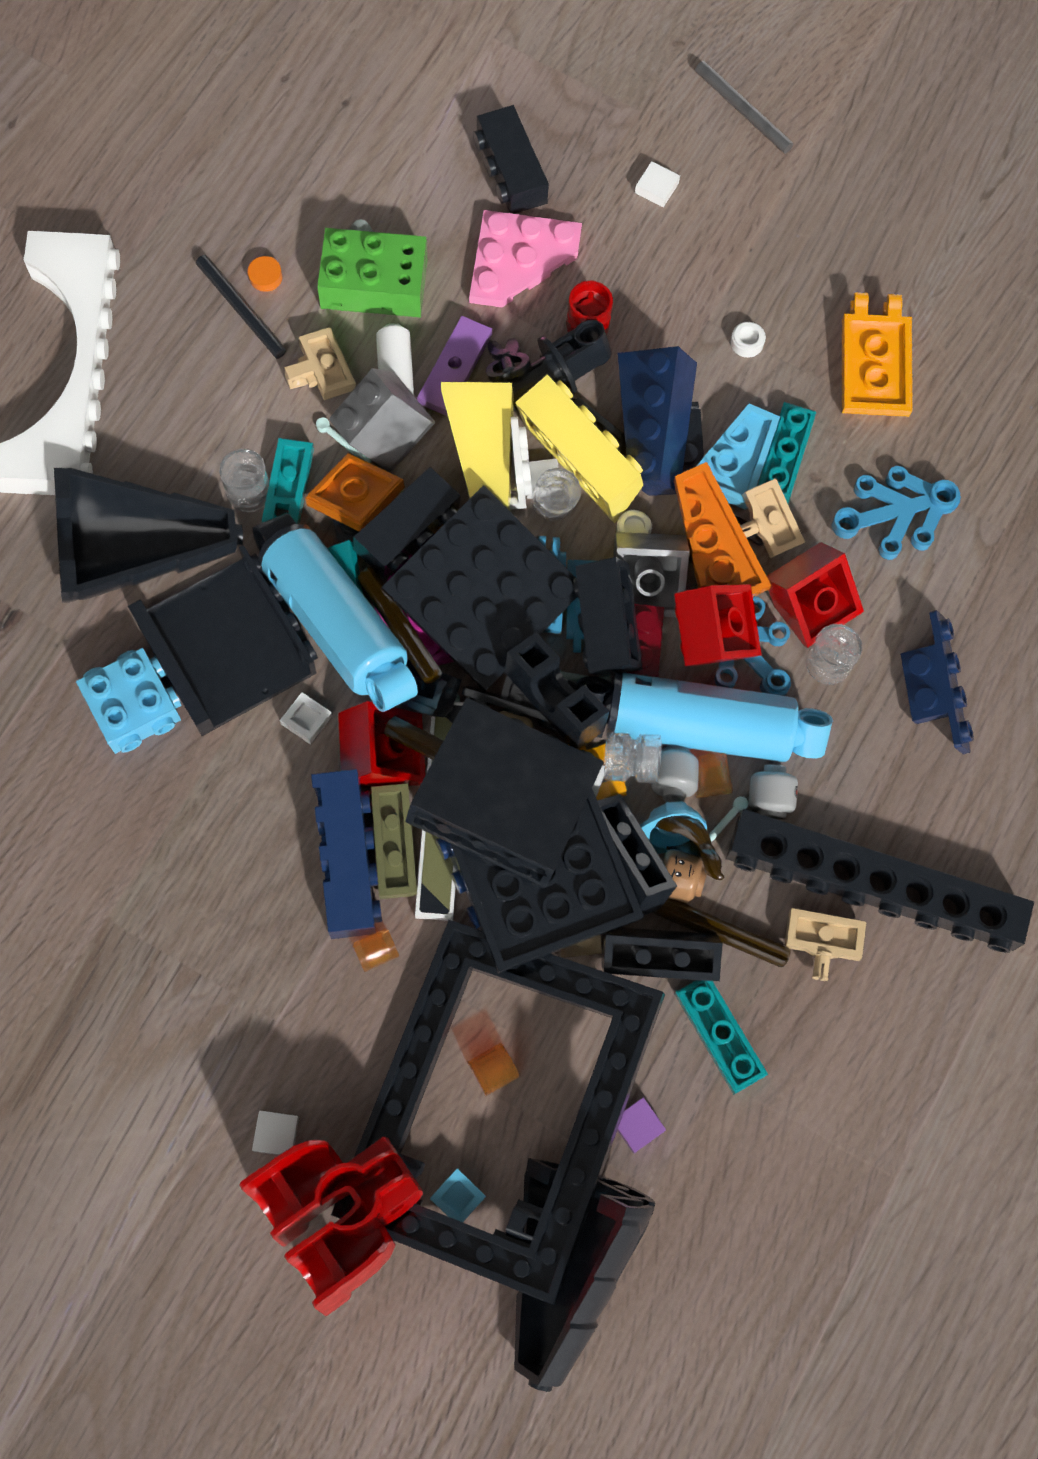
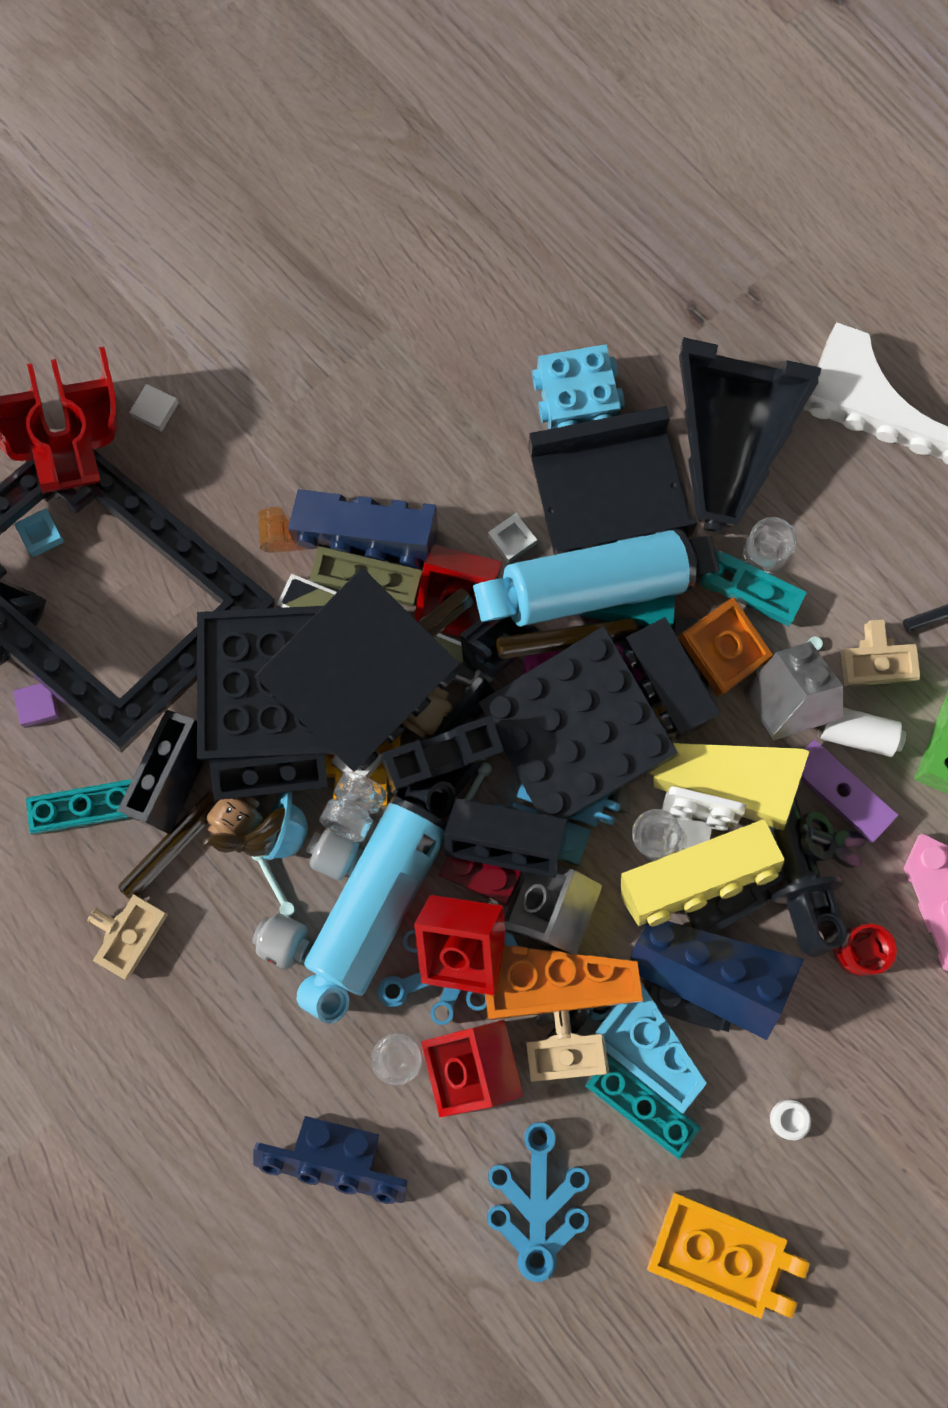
camera: 115 degrees right, 5 degrees up
(493, 1069) = (133, 596): clear orange brick -> none
(634, 522) = (608, 912): white tile -> none
(713, 775) = (320, 890): clear orange brick -> none
(1009, 912) = (60, 1111): black brick -> none

